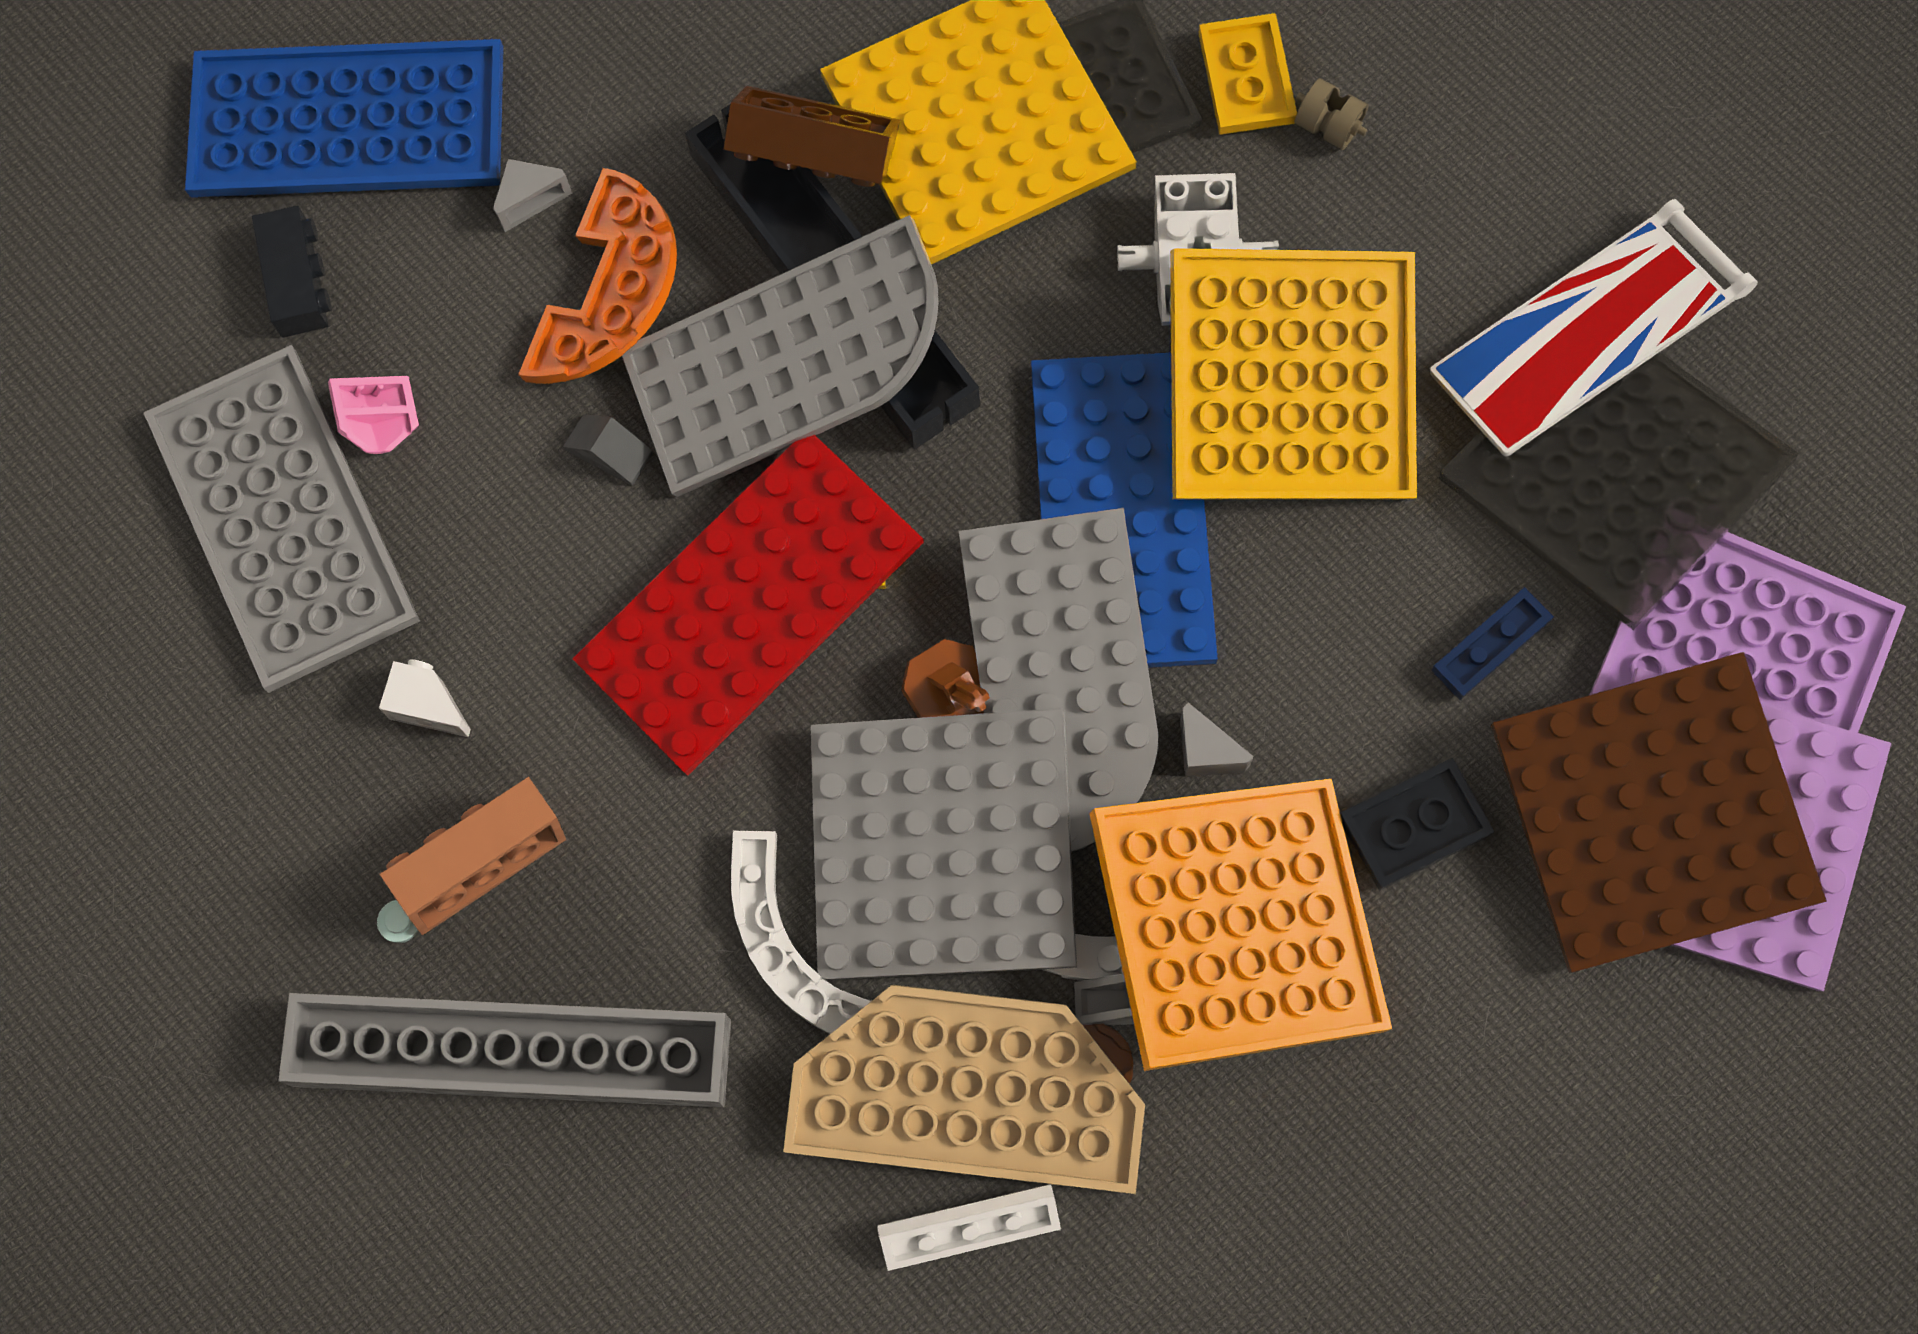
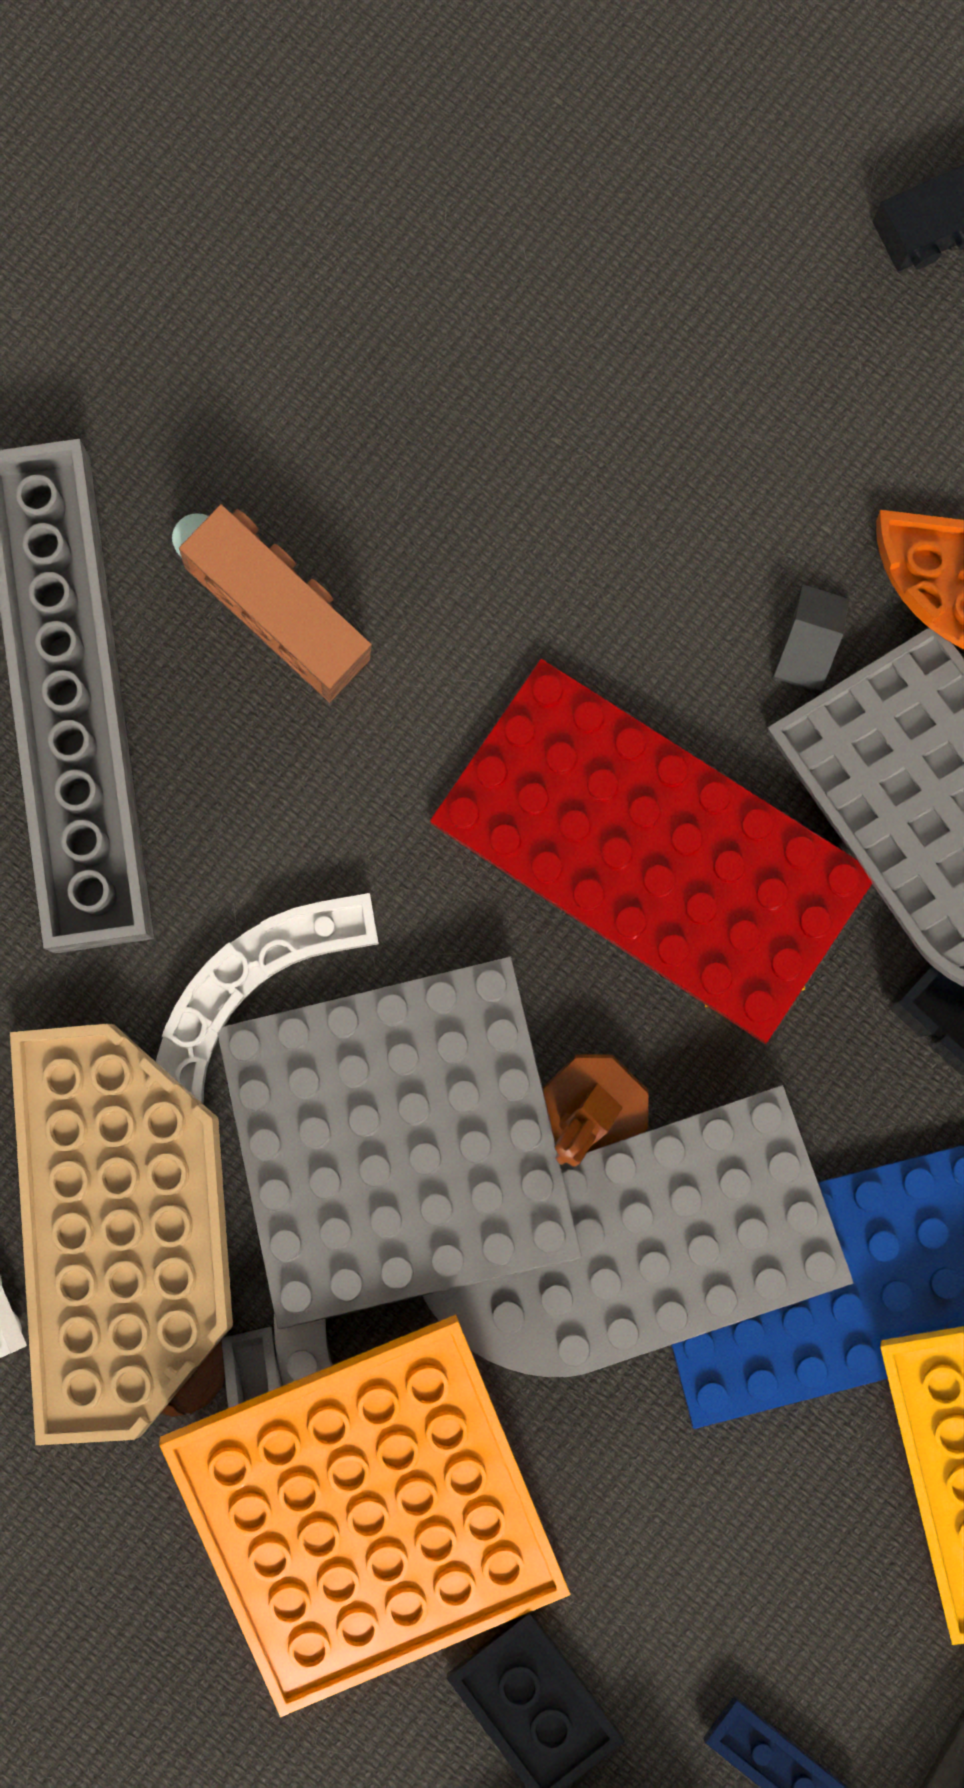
camera: 70 degrees right, 10 degrees up
(280, 518) = (646, 279): light grey plate -> none
(374, 411) = (798, 352): bright pink slope -> none
(420, 698) = (458, 498): white slope -> none
(1208, 748) = (580, 1434): light grey slope -> none

